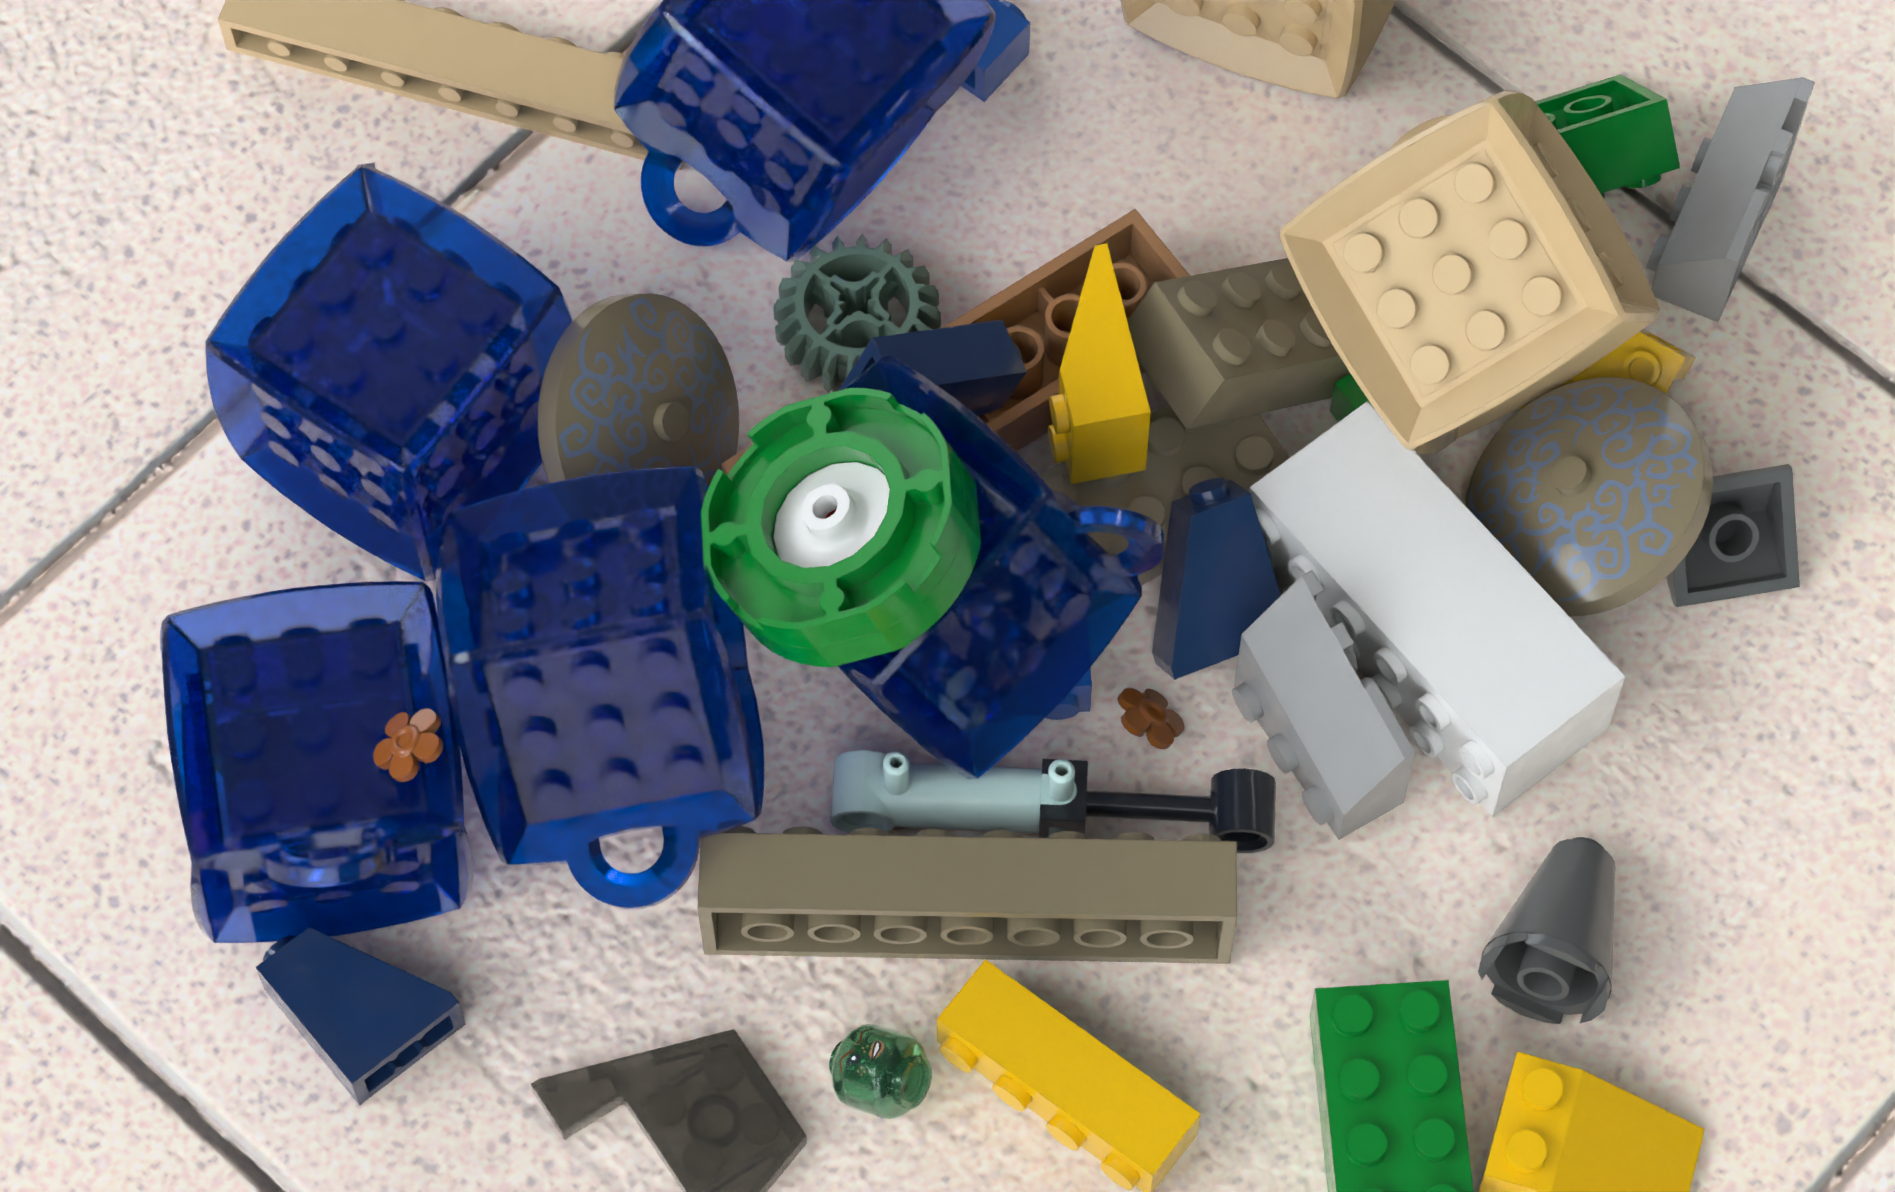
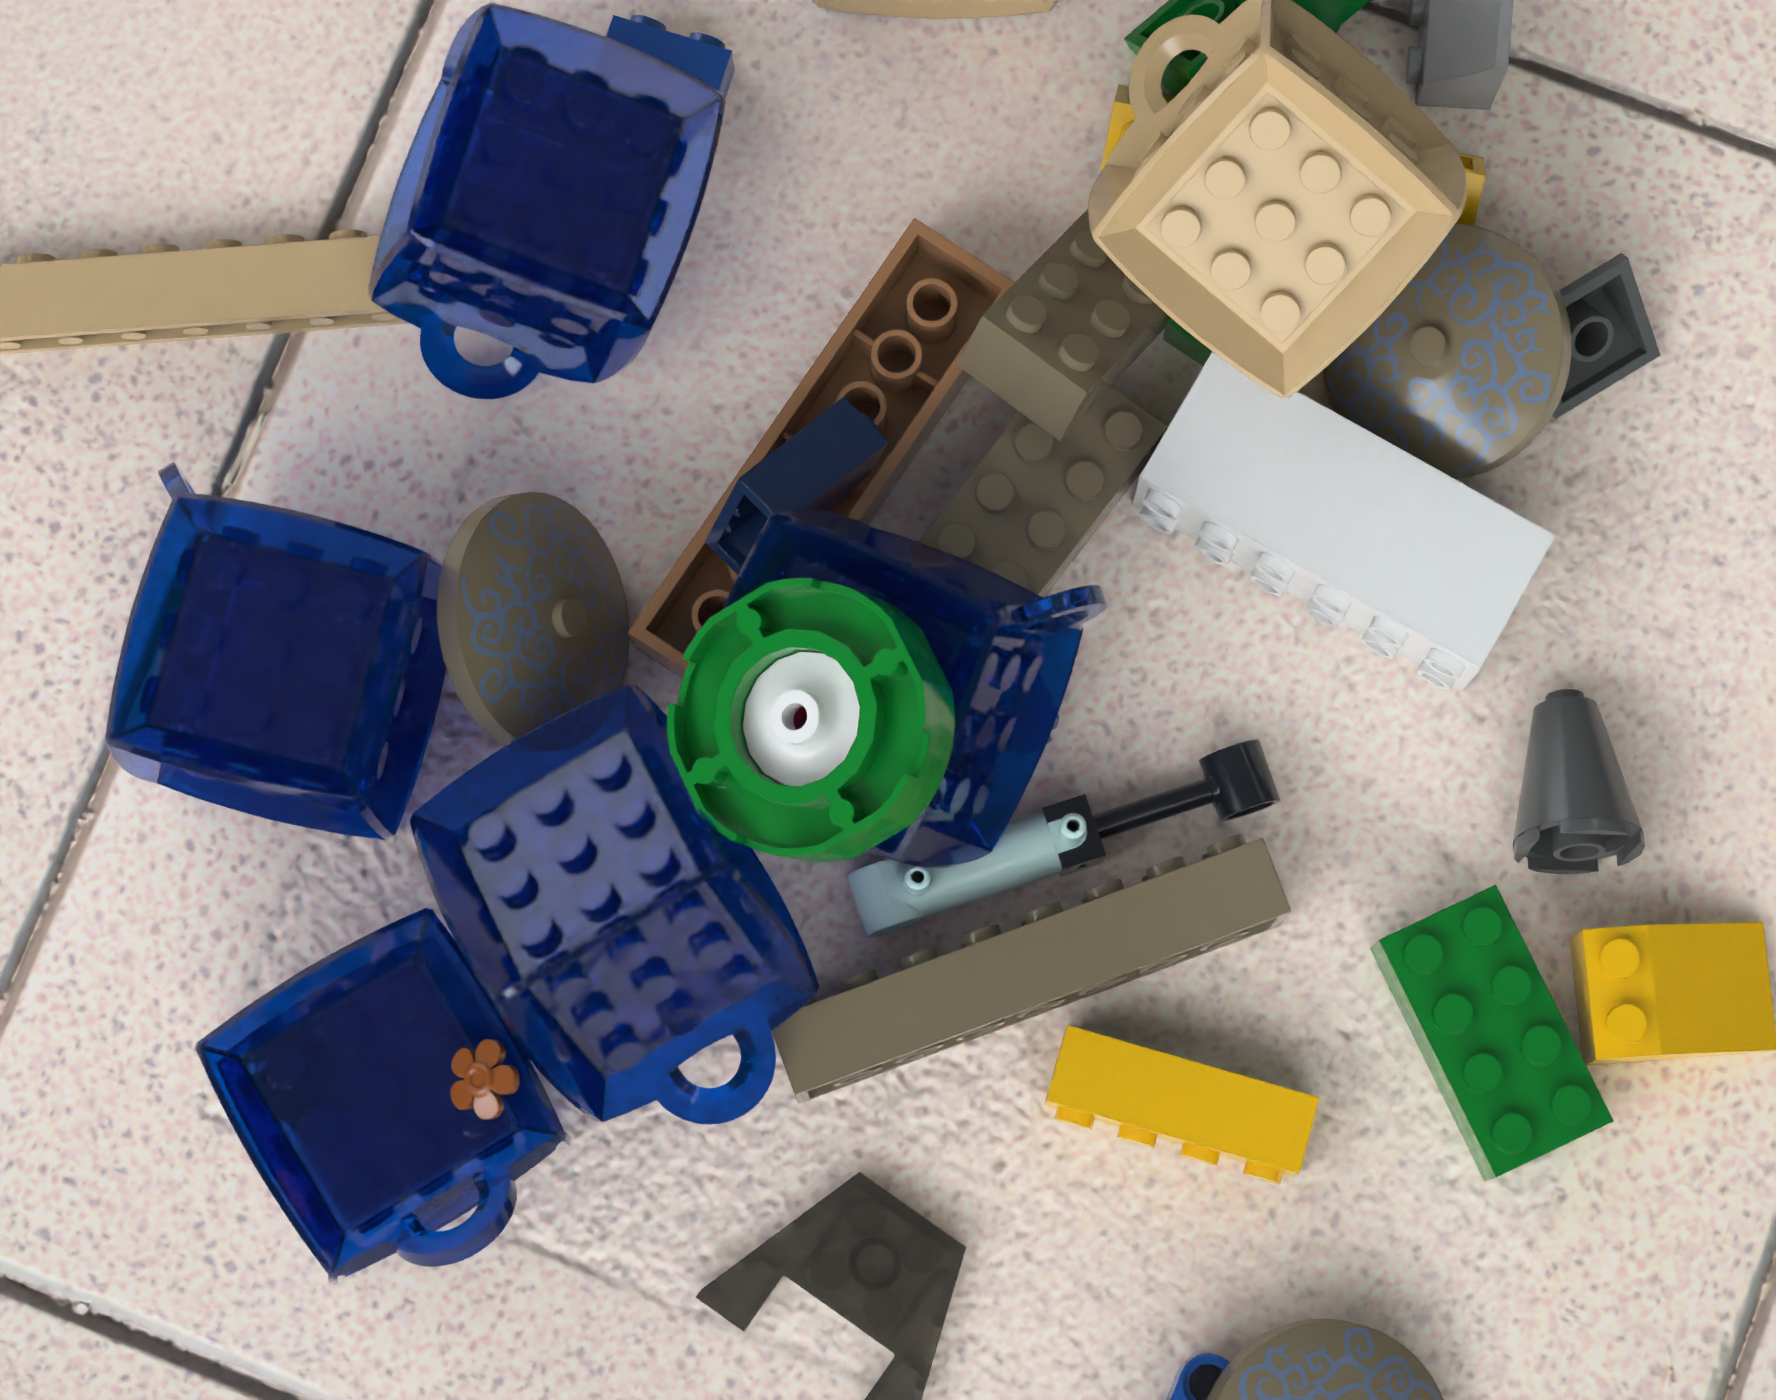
camera: 20 degrees left, 15 degrees up
(356, 1009) = (509, 1295): dark blue slope -> none
(855, 294) = (660, 405): sand green gear -> none
(880, 1071) = (1010, 1163): clear green head -> none
(1101, 399) = (970, 443): yellow slope -> none
(1149, 715) = (1118, 718): dark orange plant -> none
(1212, 578) = (1143, 570): dark blue slope -> none
(1319, 715) = (1280, 669): light grey wedge -> none

